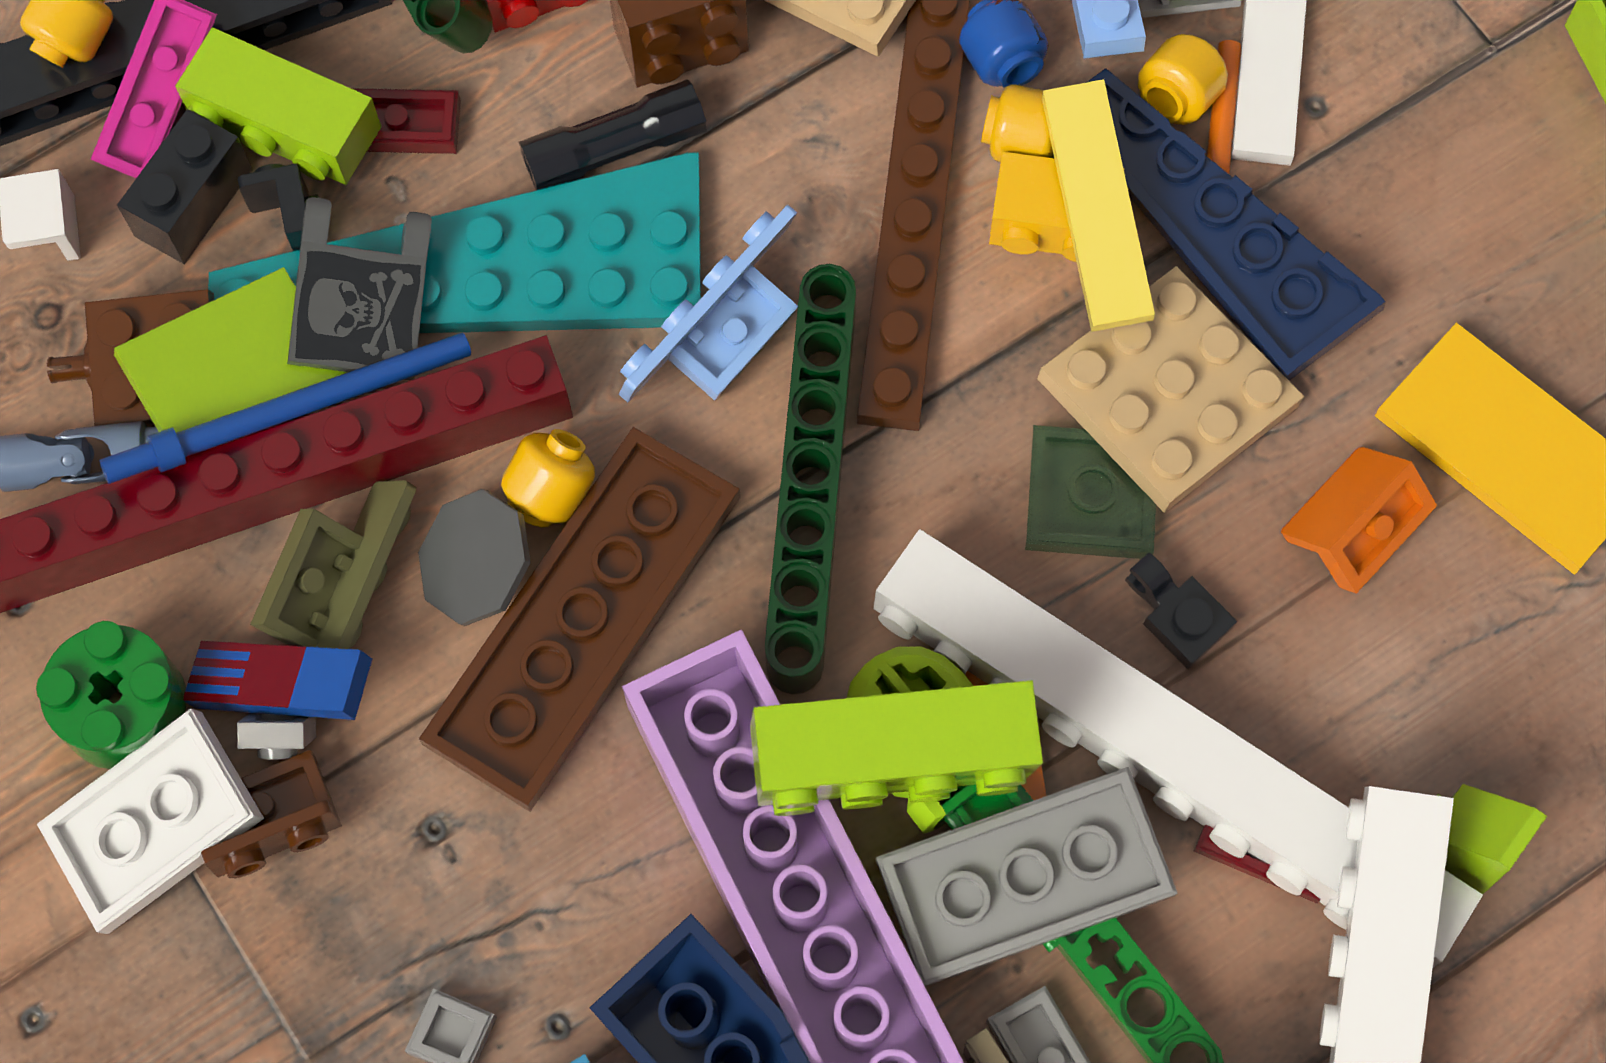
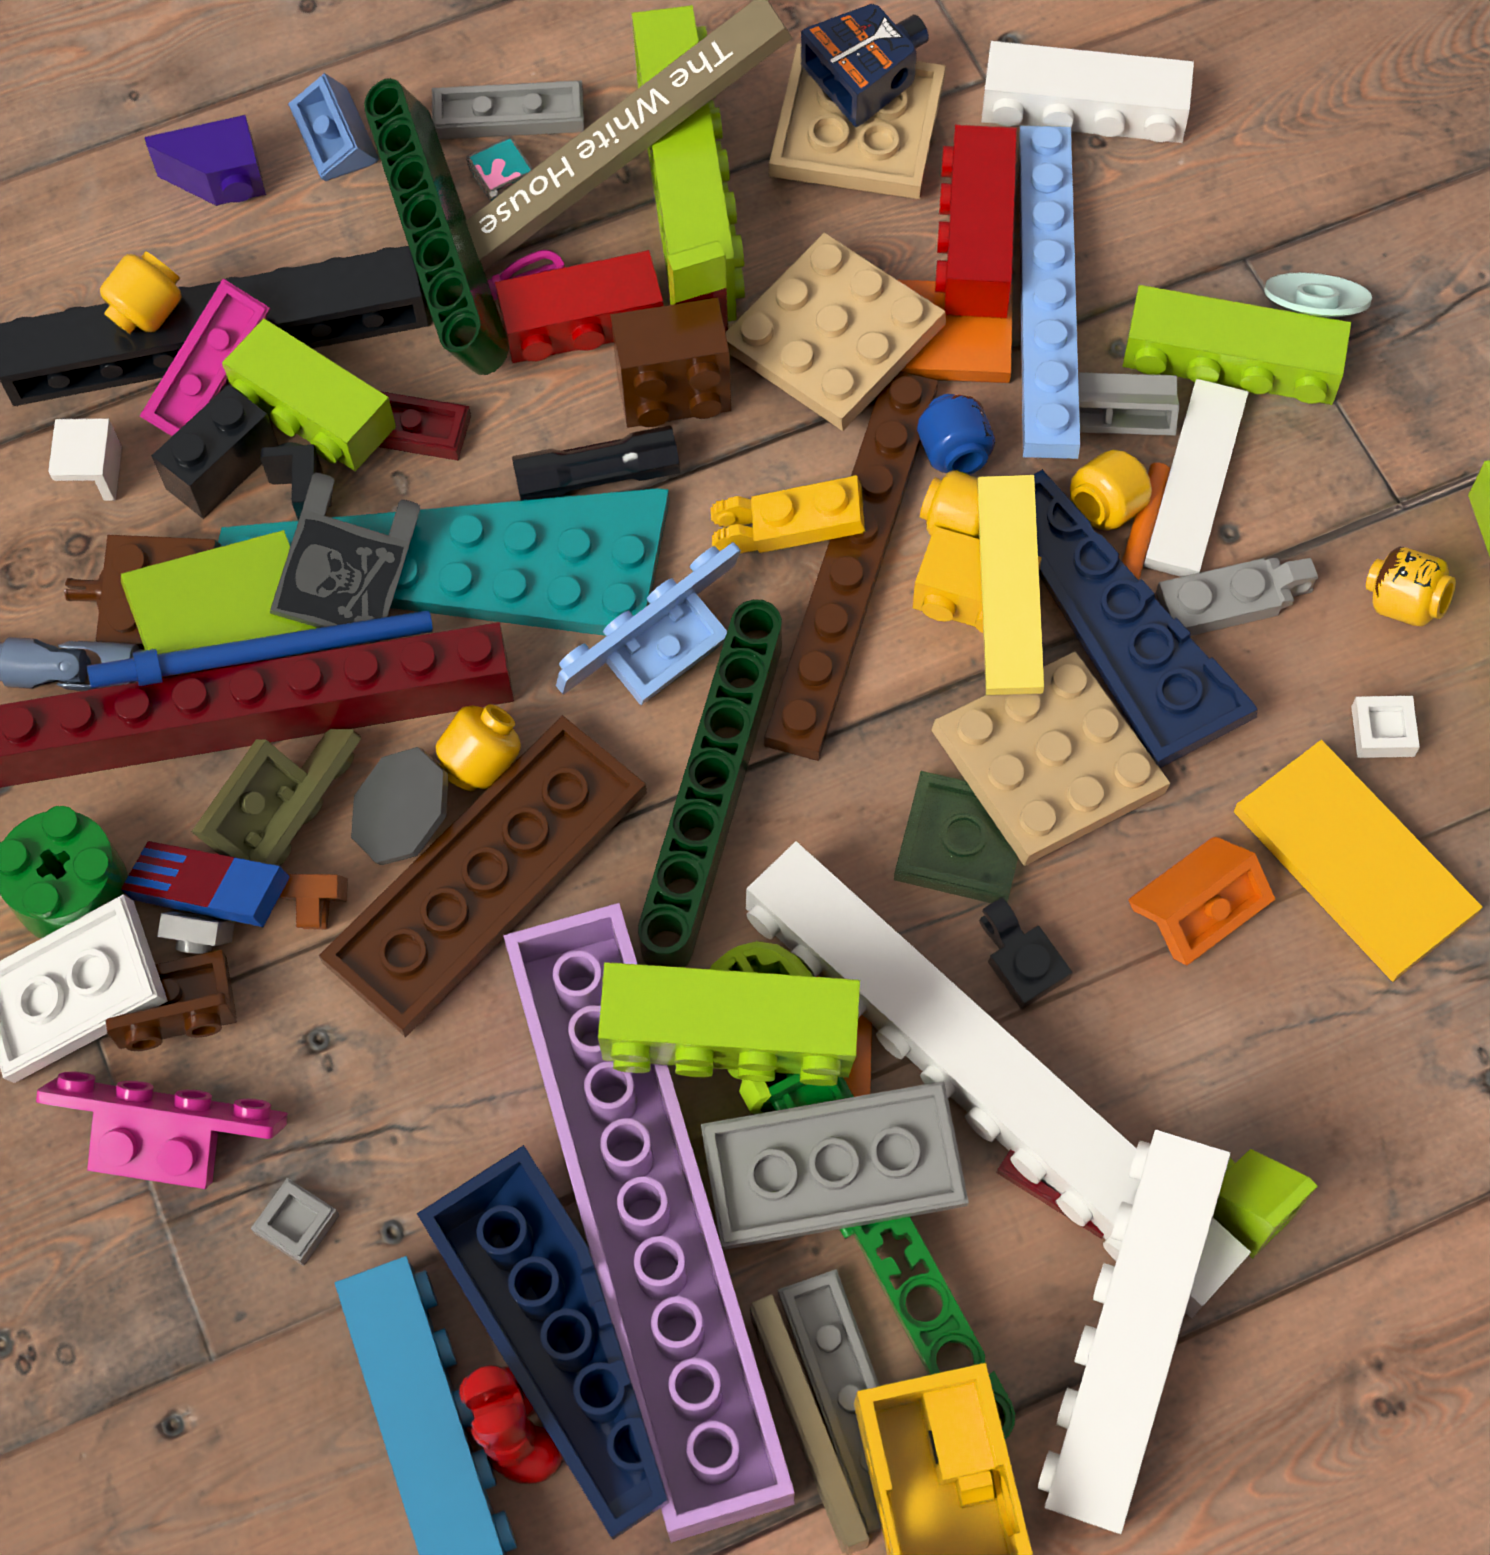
camera: 10 degrees right, 5 degrees down
(279, 963) = (155, 1132): none -> dark pink bracket
(398, 674) = (313, 897): none -> dark orange tile
(839, 163) = (790, 516): none -> yellow hinge
(1335, 173) = (1236, 593): none -> light grey hinge
(1521, 297) = (1385, 726): none -> white plate
(1523, 138) = (1410, 586): none -> yellow head

